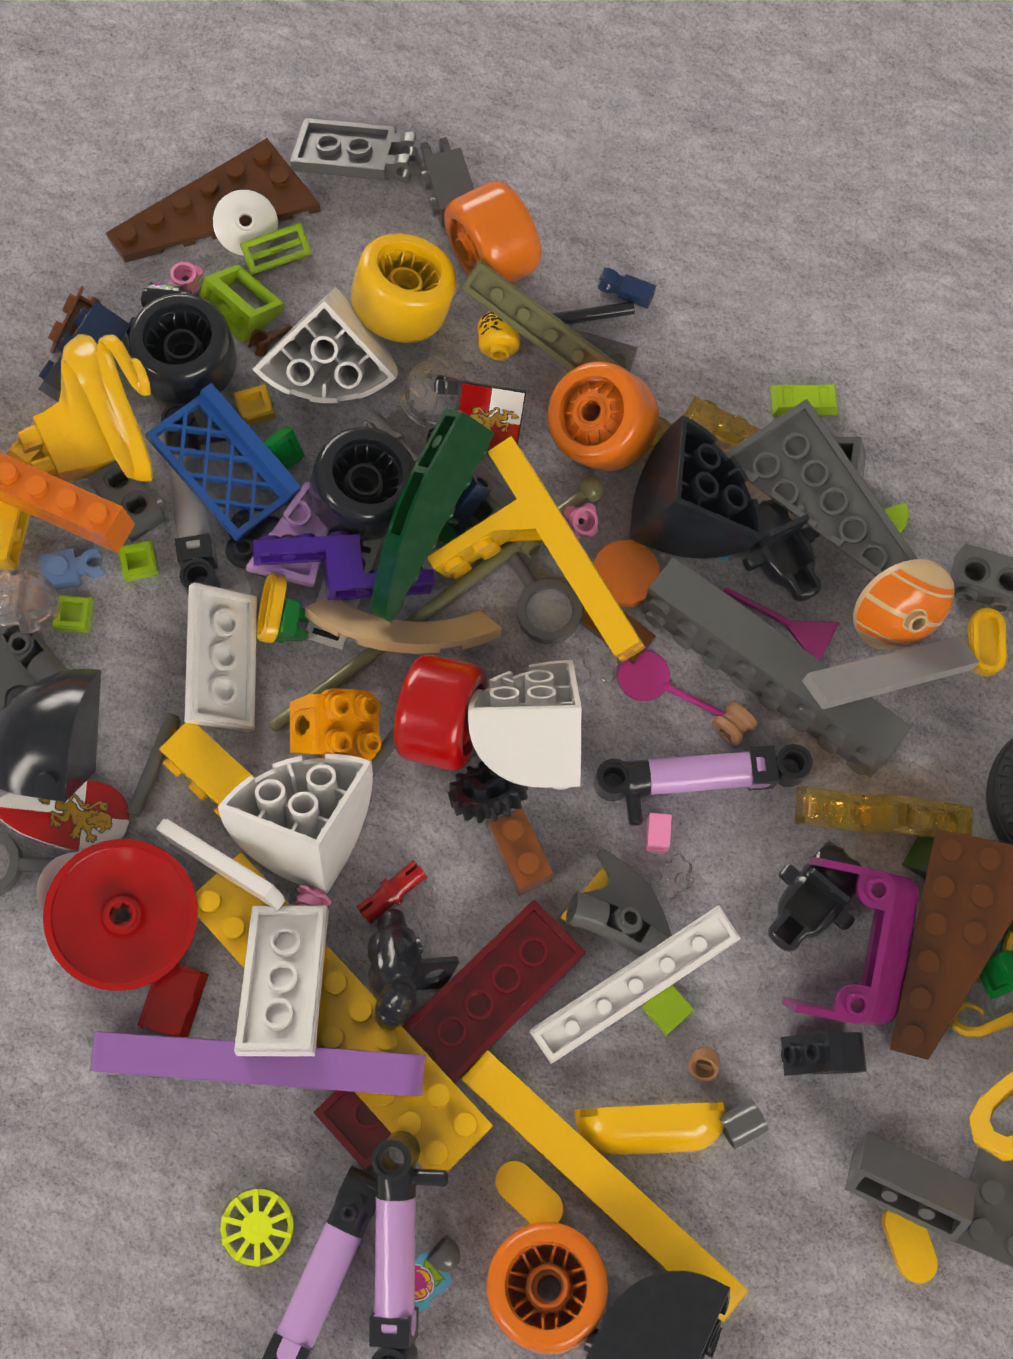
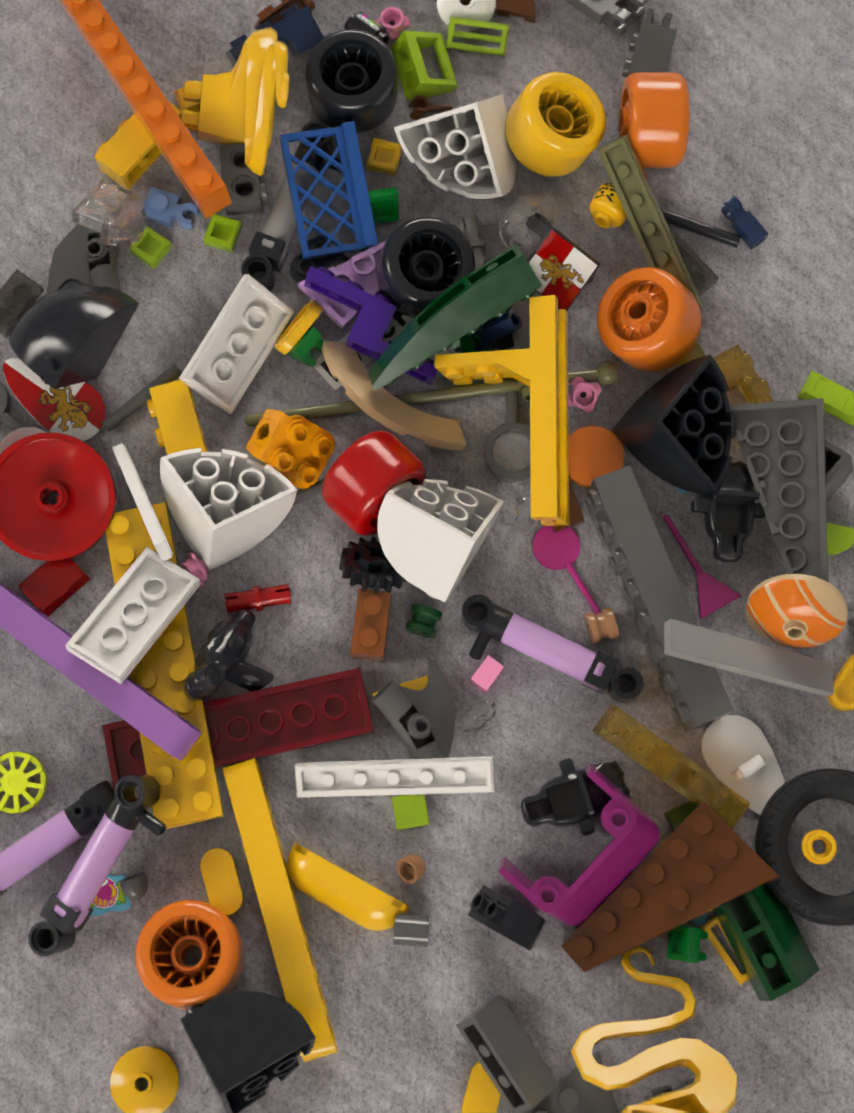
camera: 35 degrees right, 5 degrees up
(566, 817) = (423, 621): none -> dark green wheel
(938, 771) = (742, 759): none -> white shield

